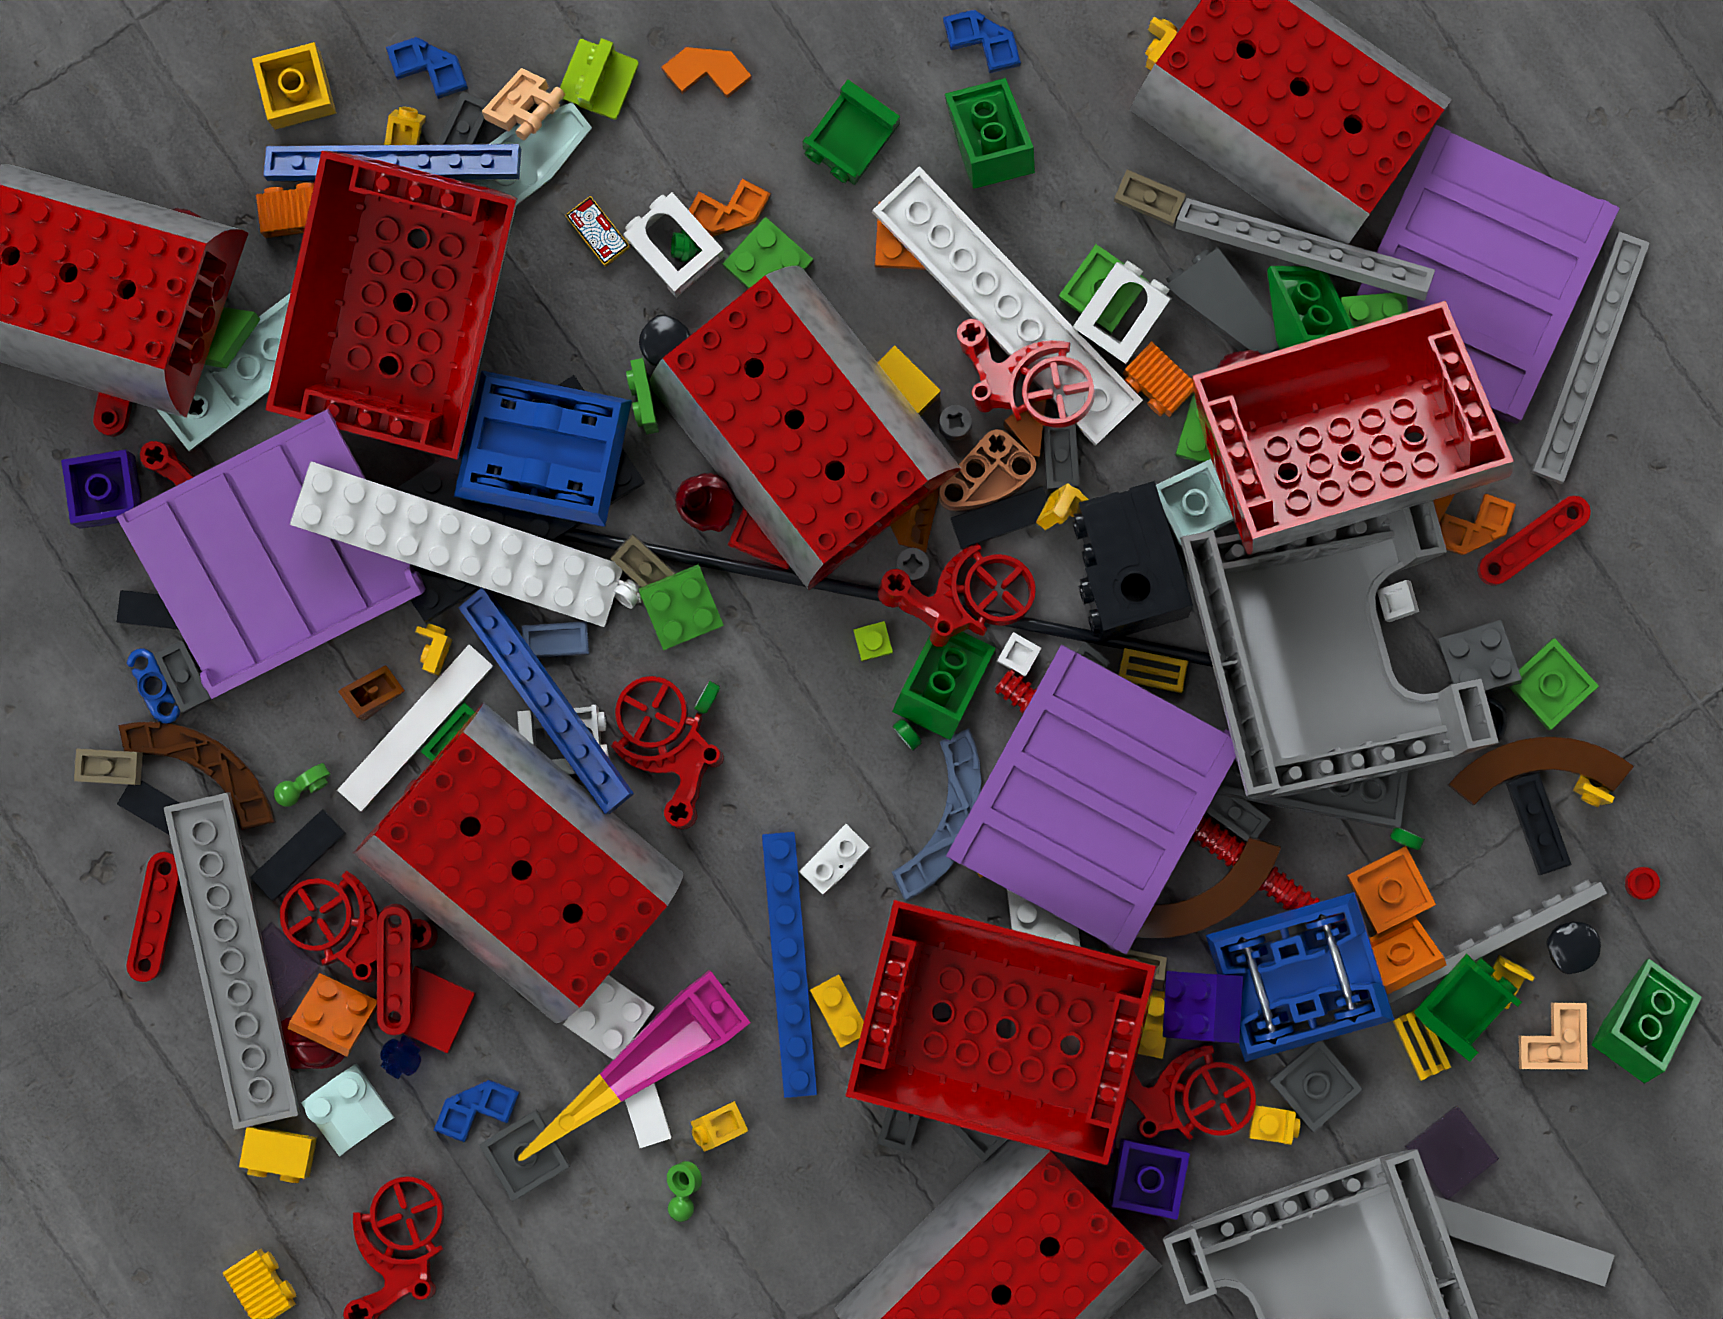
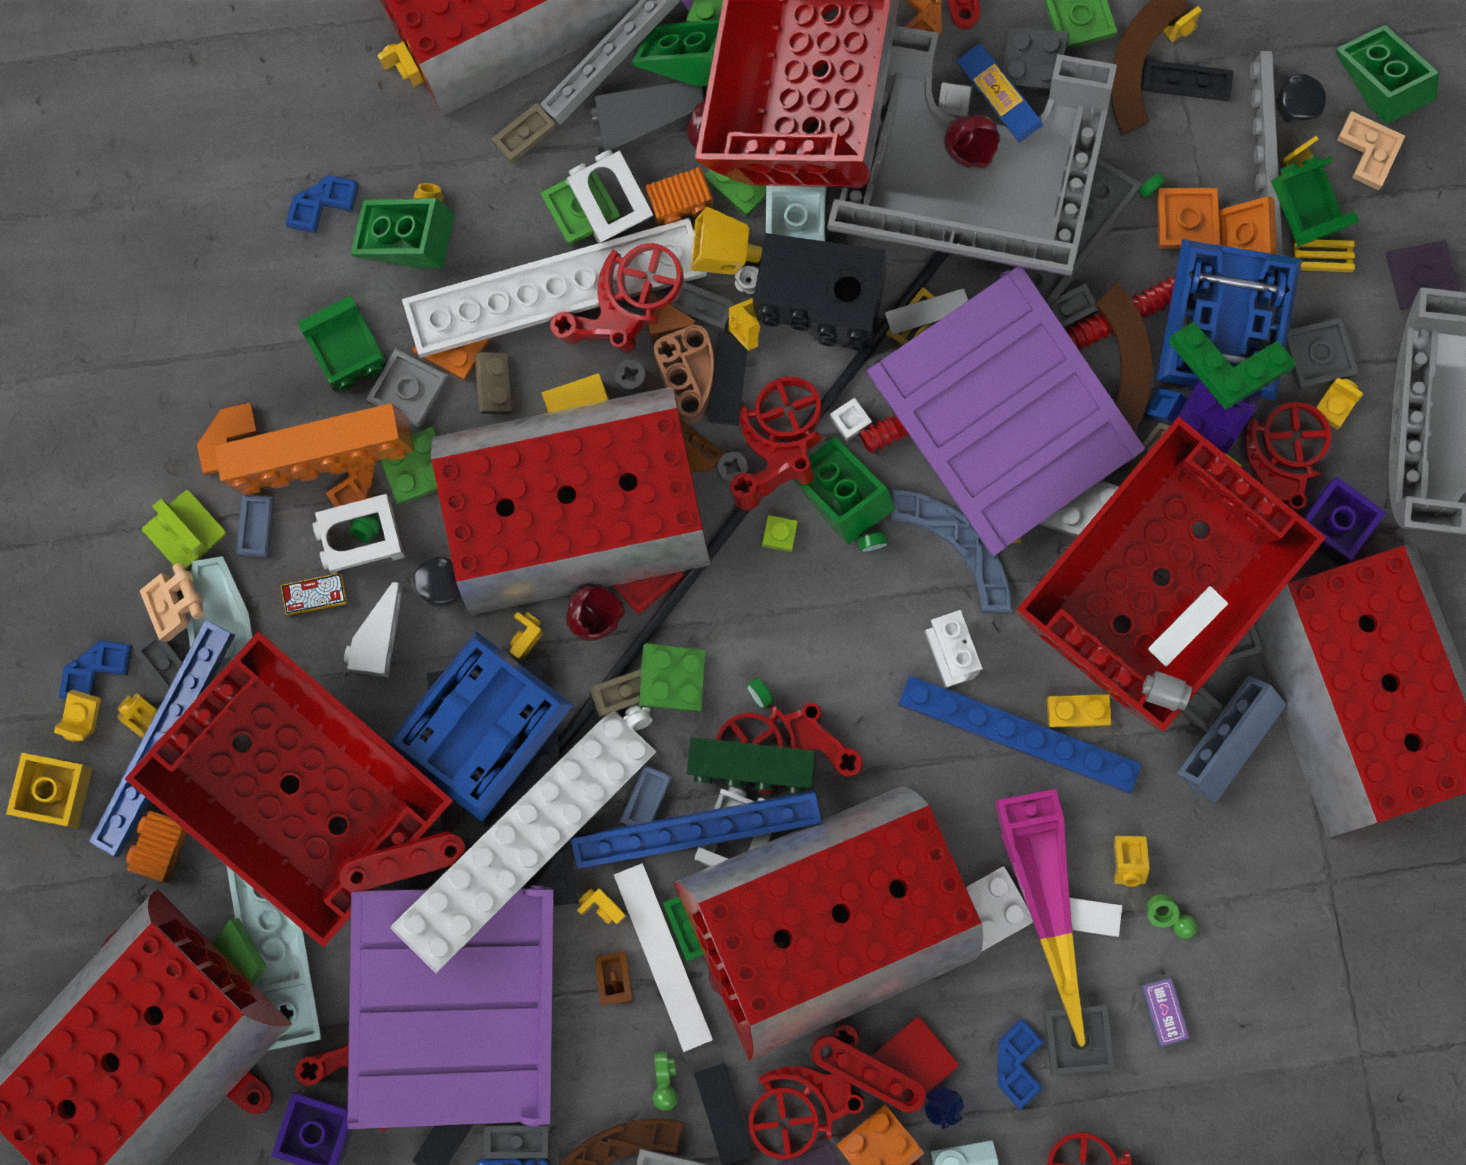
camera: 65 degrees left, 5 degrees down
(376, 75) = (79, 716): none -> yellow bracket
(376, 440) = (400, 861): none -> red plate
(579, 310) = (374, 641): none -> white slope
(590, 1225) = (1164, 1012): none -> medium lavender tile
(633, 722) = (751, 763): none -> dark green brick
(635, 142) = (255, 526): none -> sand blue tile
(639, 385) = (467, 618): bright green plate -> none
(647, 450) = (525, 641): none -> yellow bracket
(730, 160) = (314, 449): none -> orange brick
(839, 216) = (409, 386): none -> light grey tile
(881, 1079) = (1166, 691): none -> light grey brick
(881, 1170) = (1232, 738): none -> sand blue brick
(884, 294) = (493, 383): none -> dark tan plate
(957, 1072) = (1188, 626): none -> white sticker
(1041, 137) = (428, 190): none -> yellow plate
(1110, 479) = (741, 276): none -> white plate
(1130, 444) = (721, 244): none -> yellow torso
(1164, 677) = (925, 311): none -> white sticker
(1184, 955) = (1165, 406): none -> blue plate
(1224, 997) = (1226, 382): none -> green plate
(1354, 637) = (972, 141): none -> dark red hair
(1423, 641) = (999, 93): none -> blue tile
(1642, 883) = (1273, 25): red tile -> none

